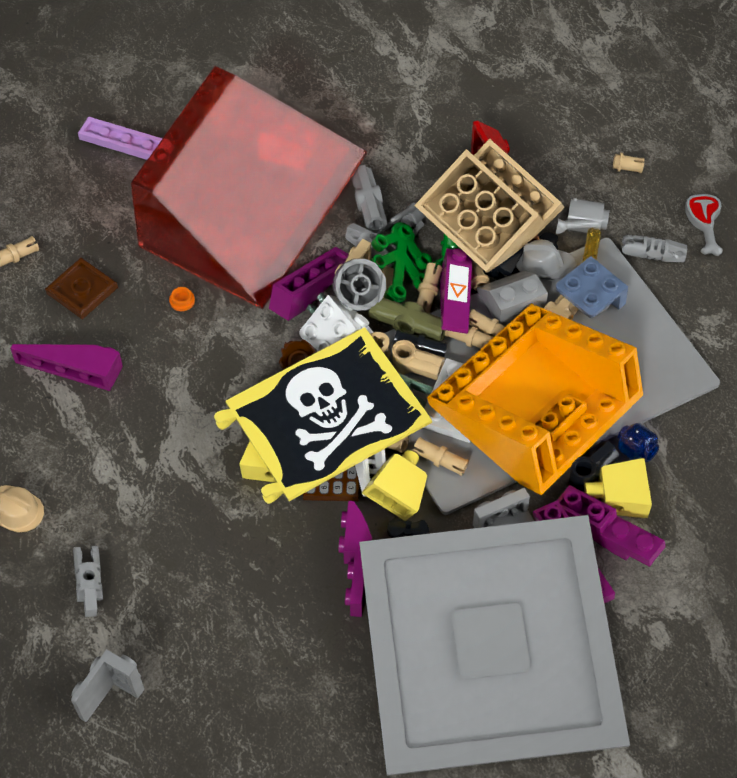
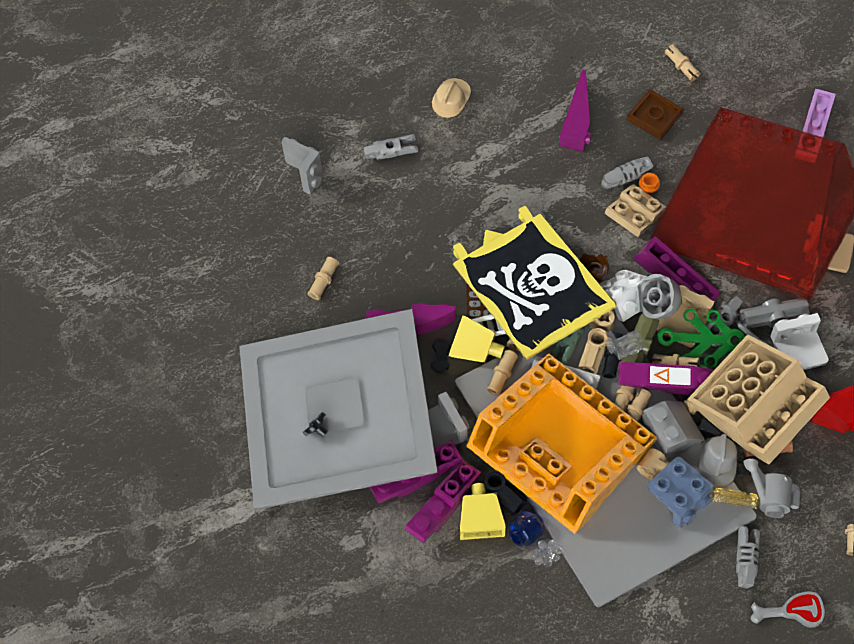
camera: 90 degrees right, 5 degrees up
(166, 319) = (627, 172): none -> light grey hinge
(217, 316) = (635, 210): none -> tan slope
(287, 665) = (323, 278): none -> tan pin
(404, 182) = (800, 340): none -> white bracket
(422, 316) = (625, 345): none -> clear bracket
(523, 658) = (316, 426): none -> black plant
(661, 426) = (547, 552): none -> clear plant

